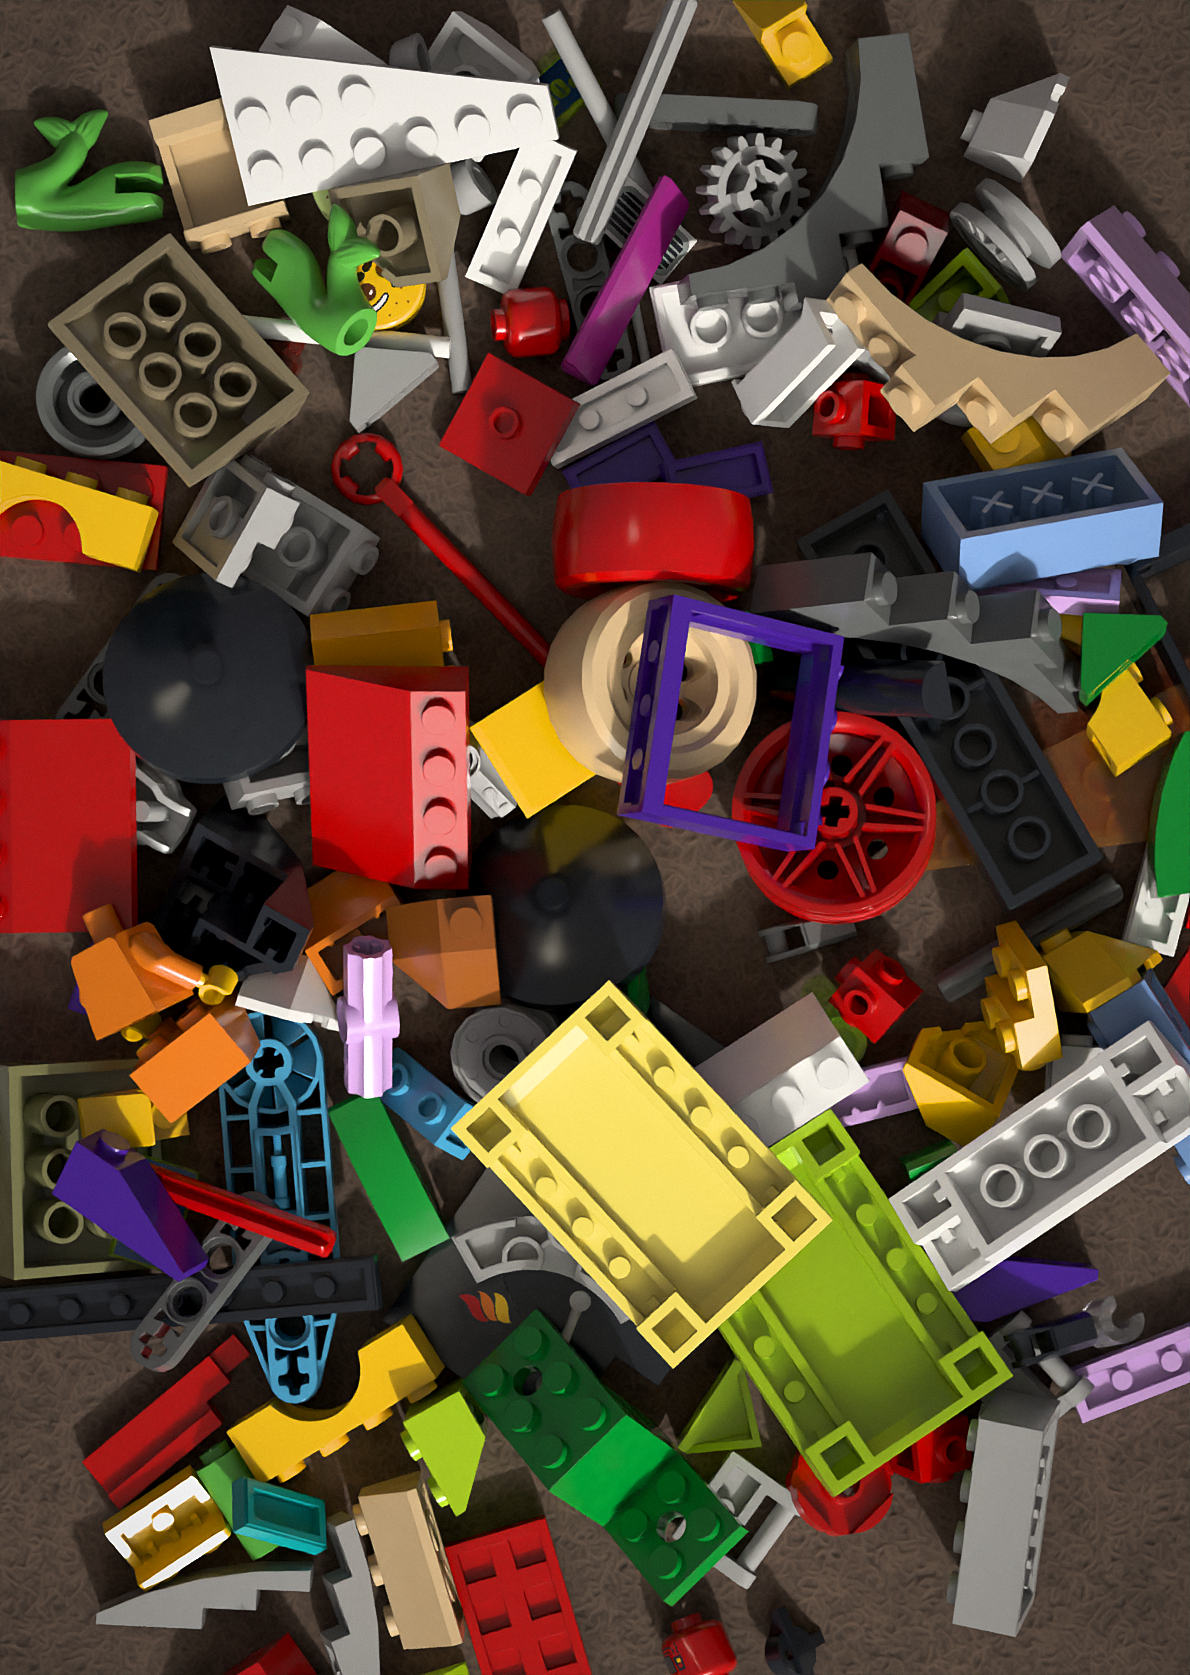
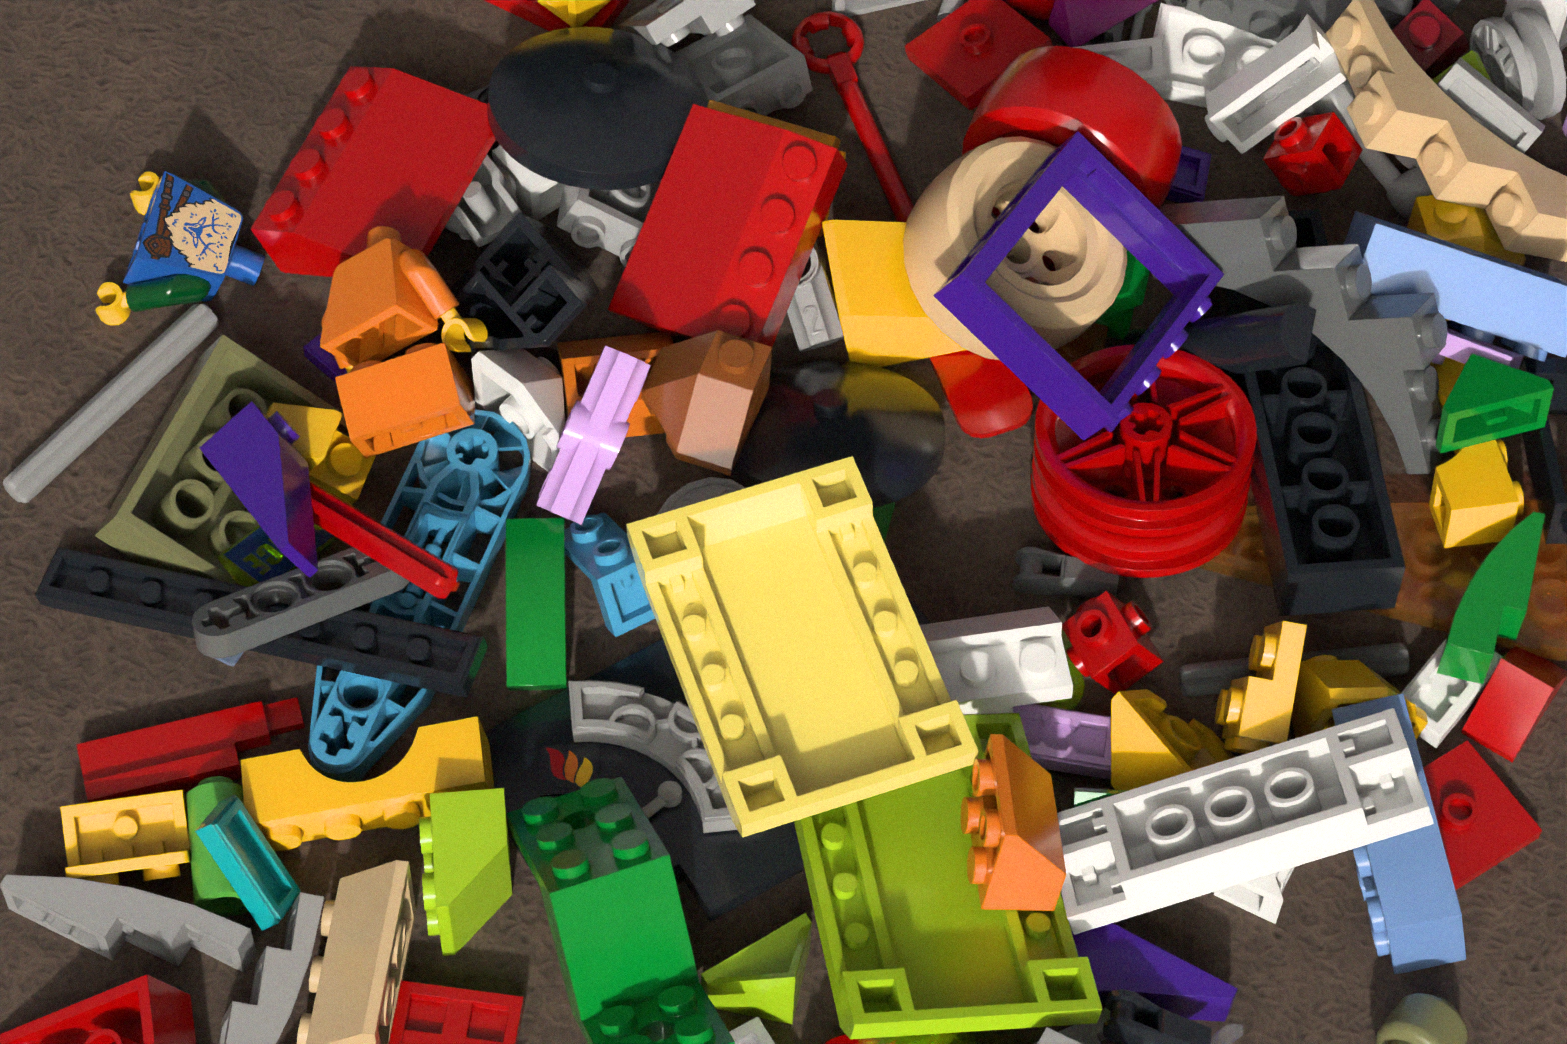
camera: 20 degrees right, 30 degrees down
(881, 1249) = (1013, 831): none -> orange slope

